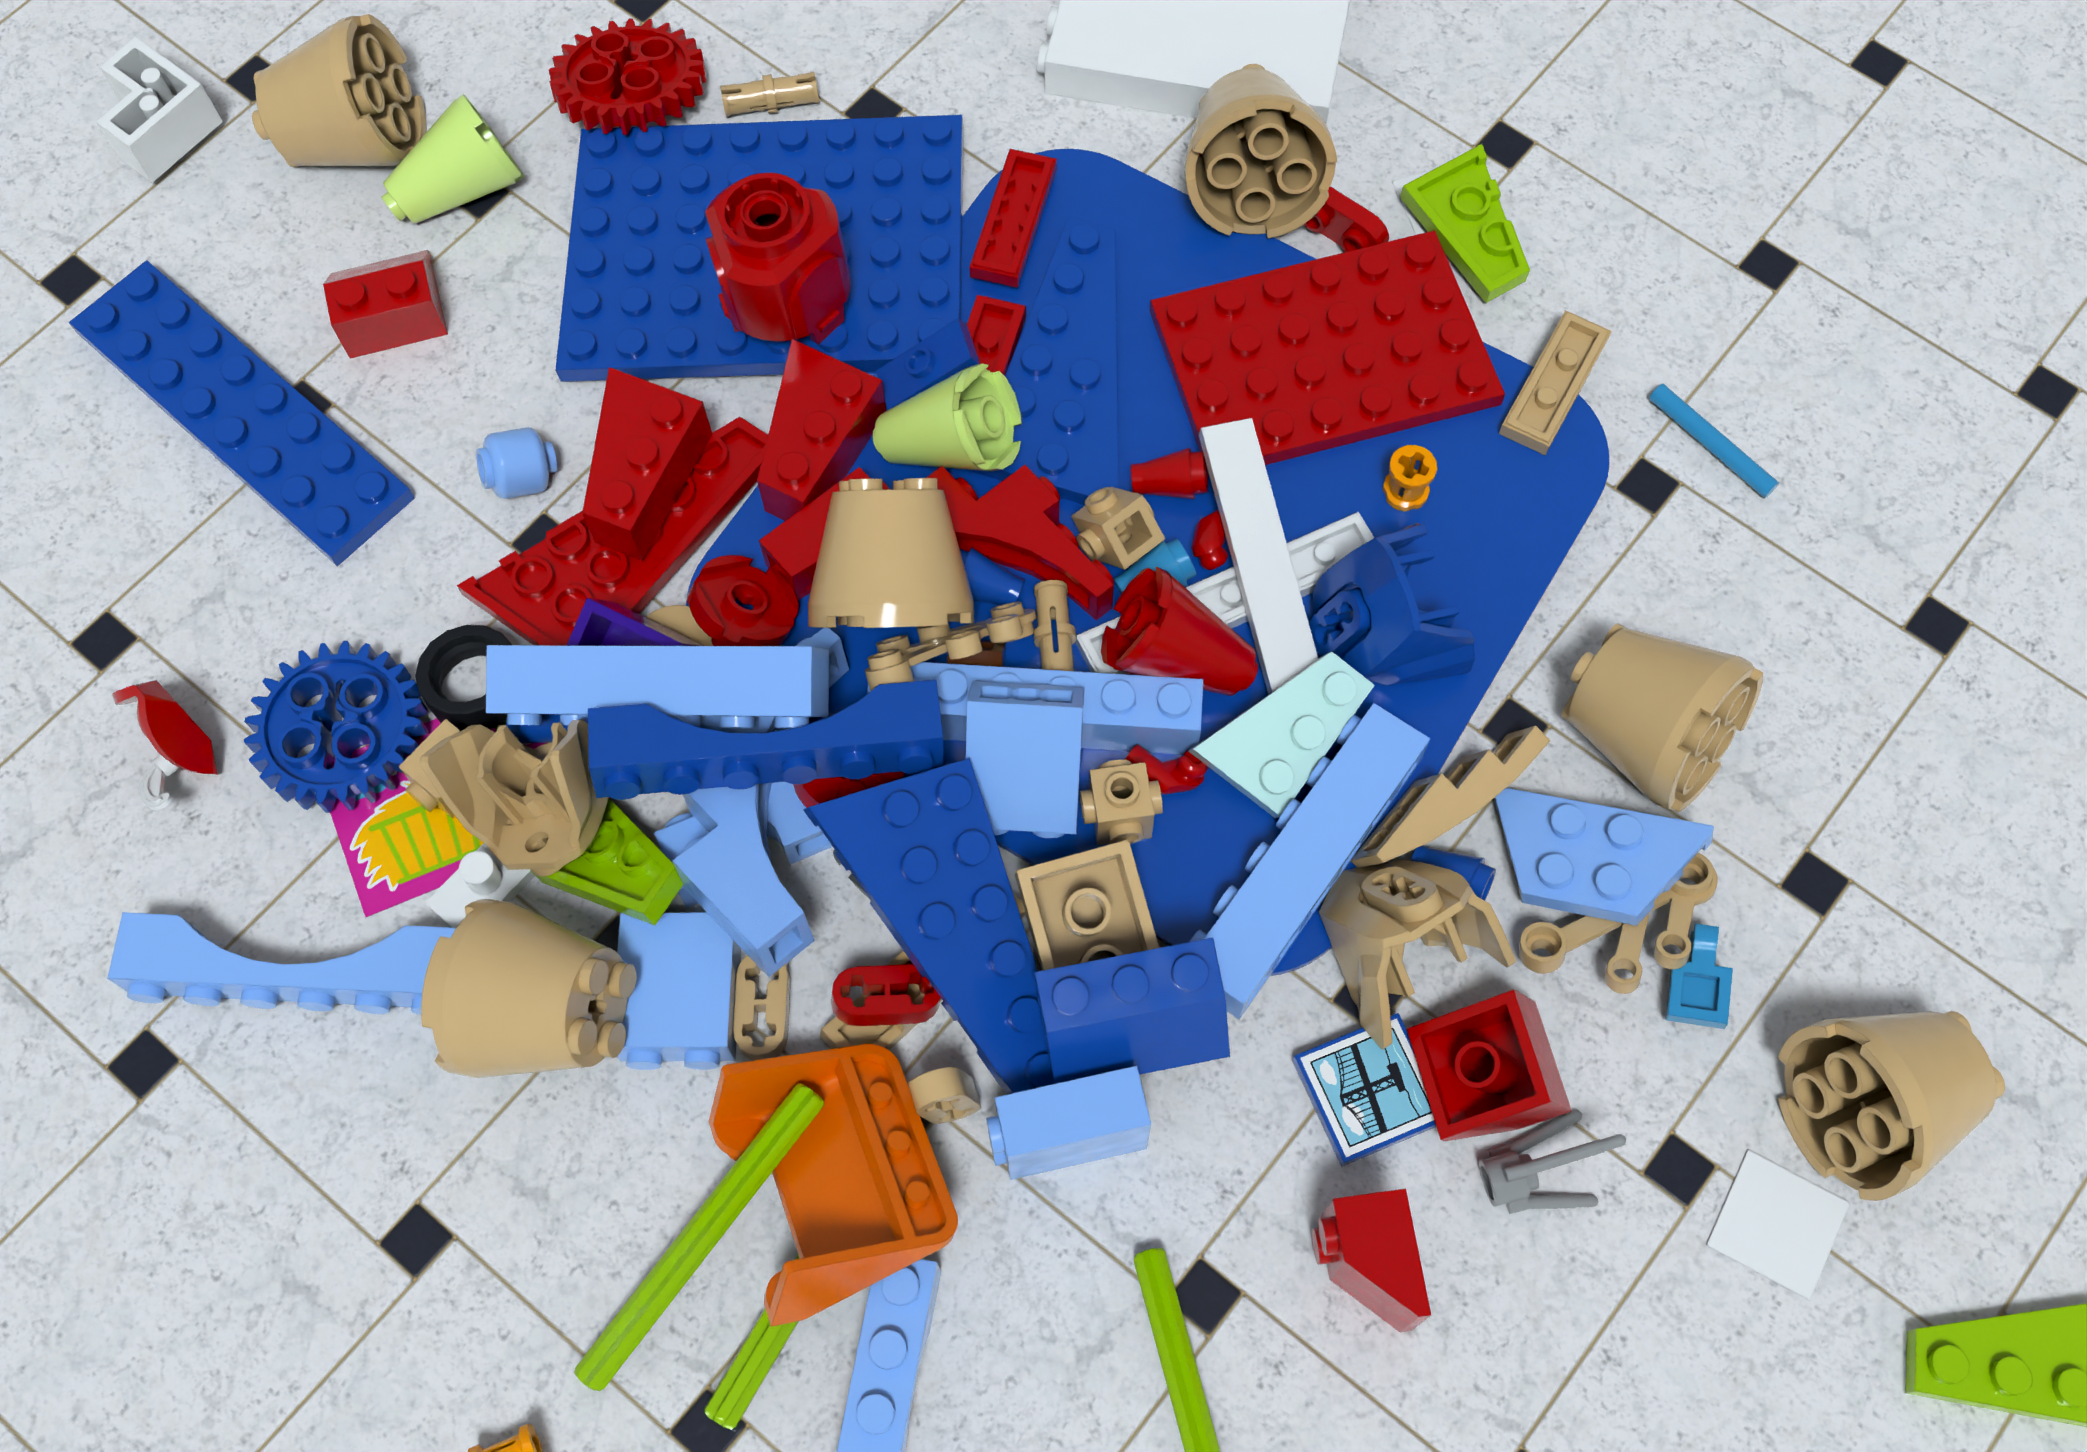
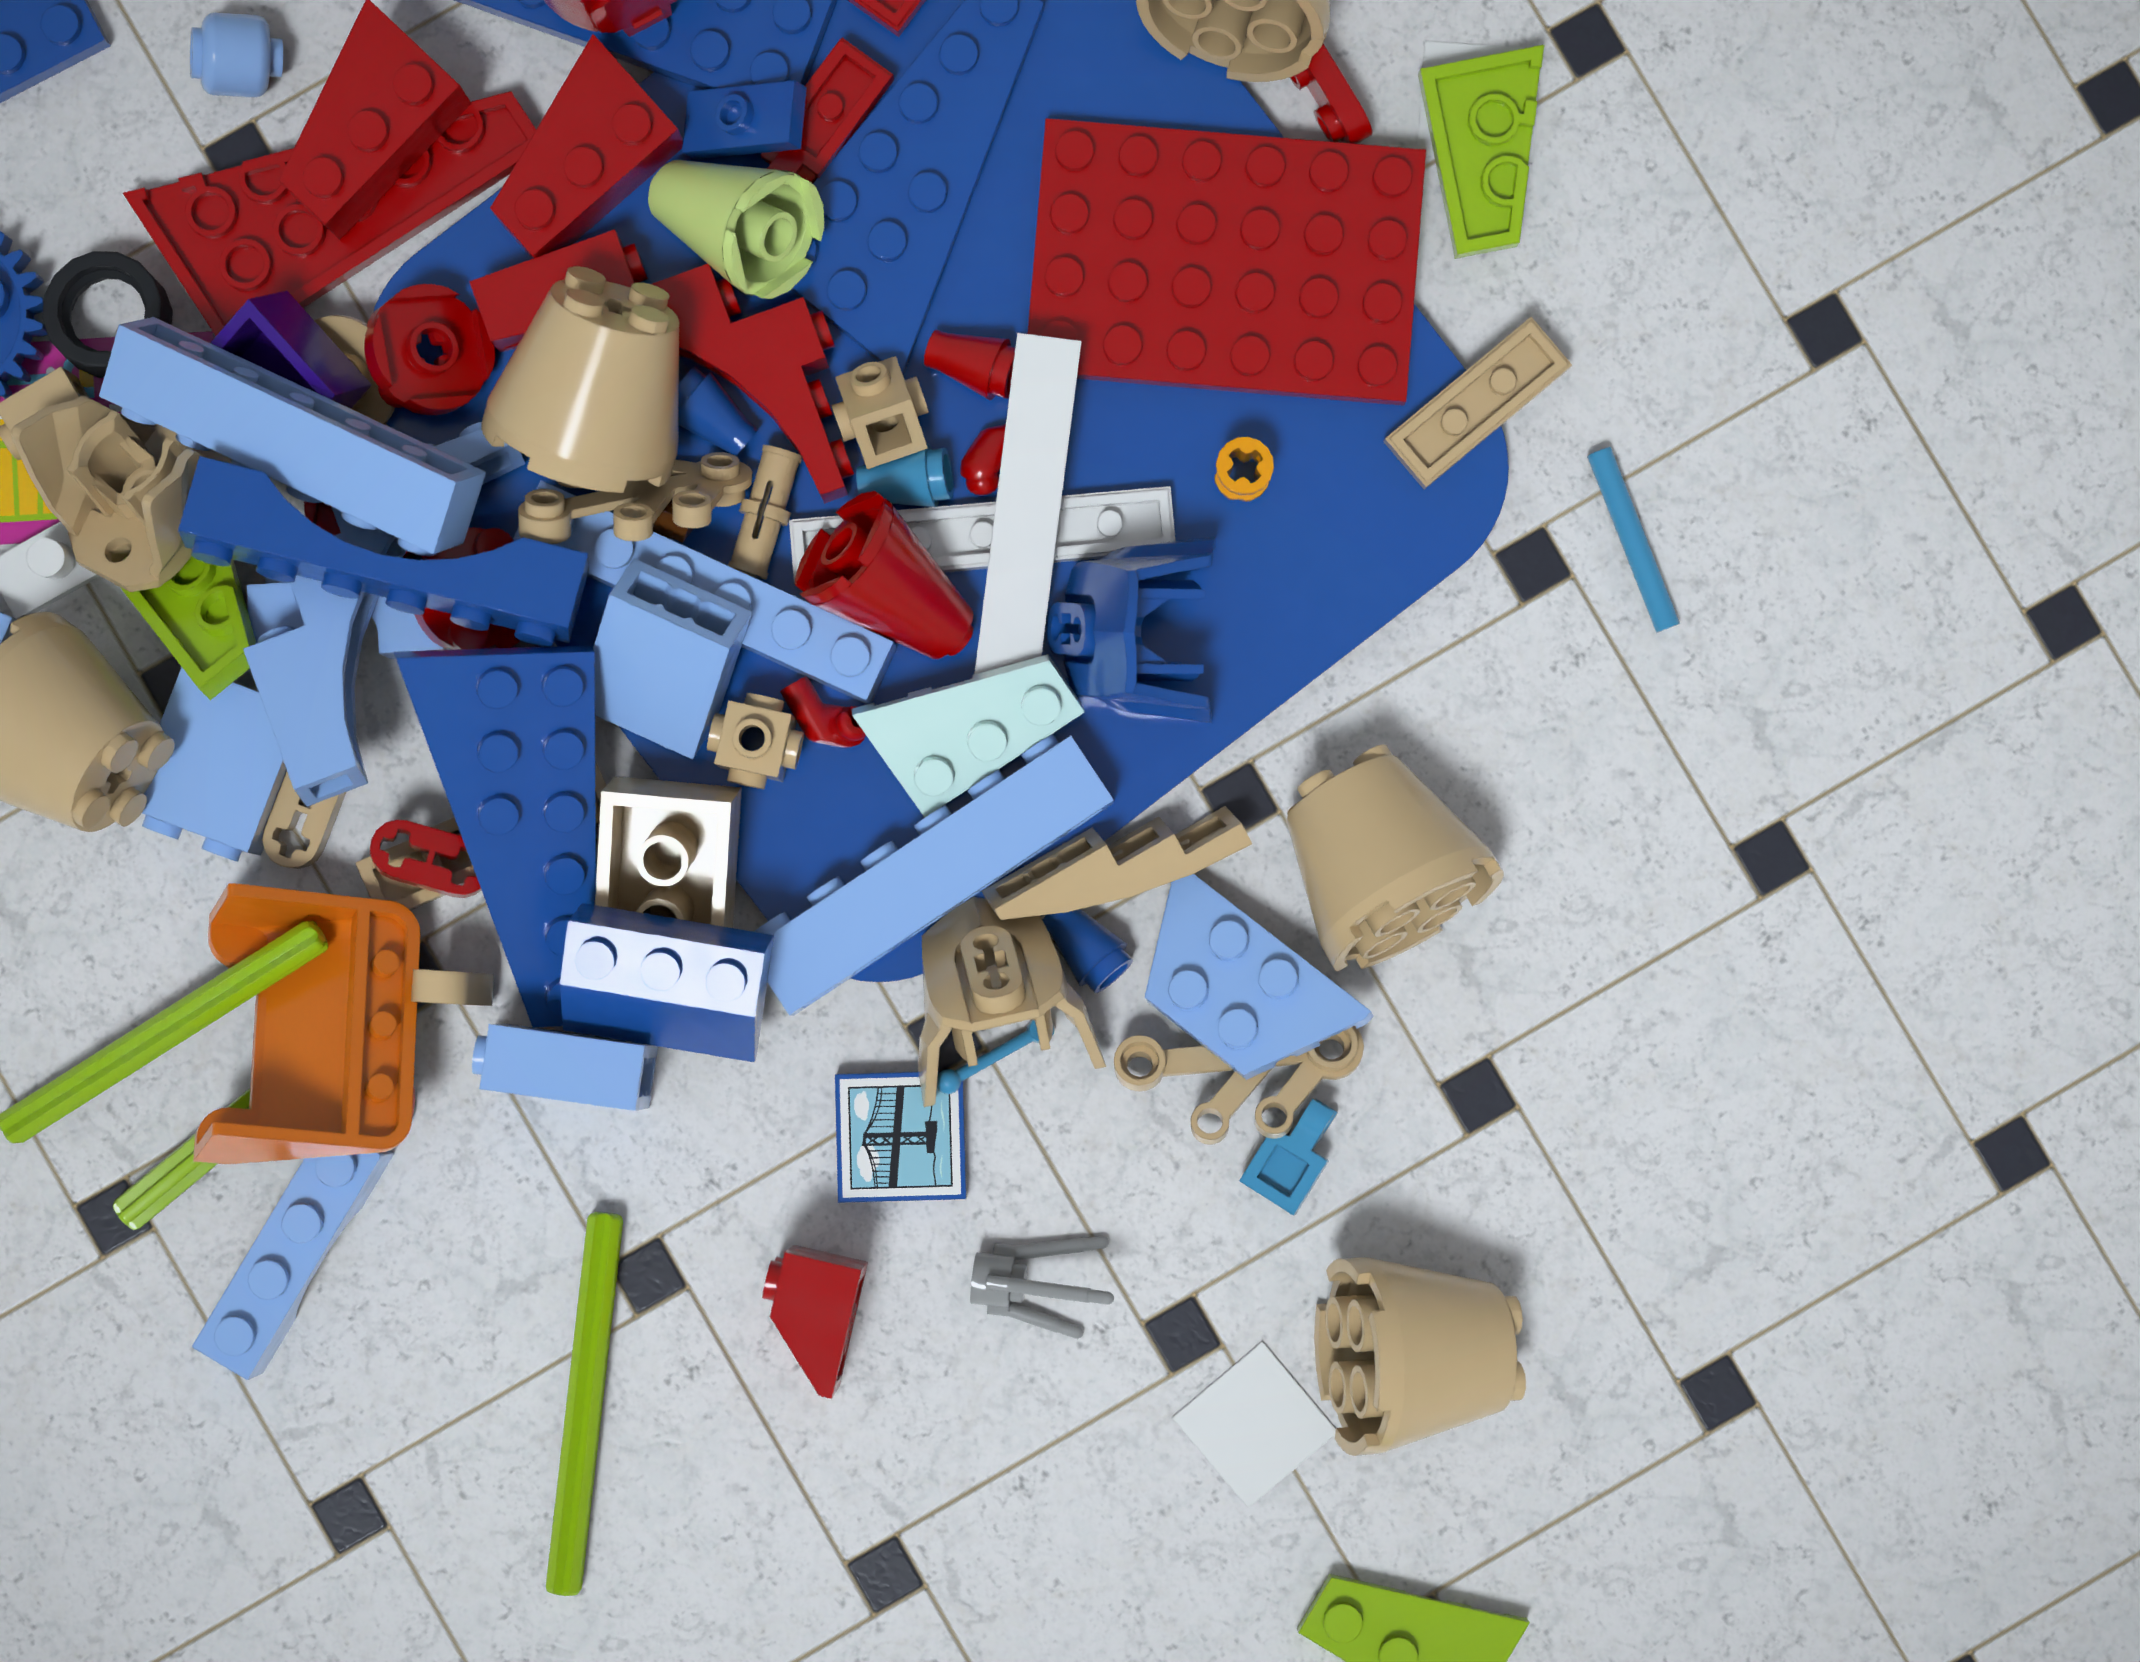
camera: 20 degrees right, 20 degrees up
(1442, 962) = (949, 1080): none -> dark azure hinge
(1488, 1068) = (1025, 1166): red slope -> none

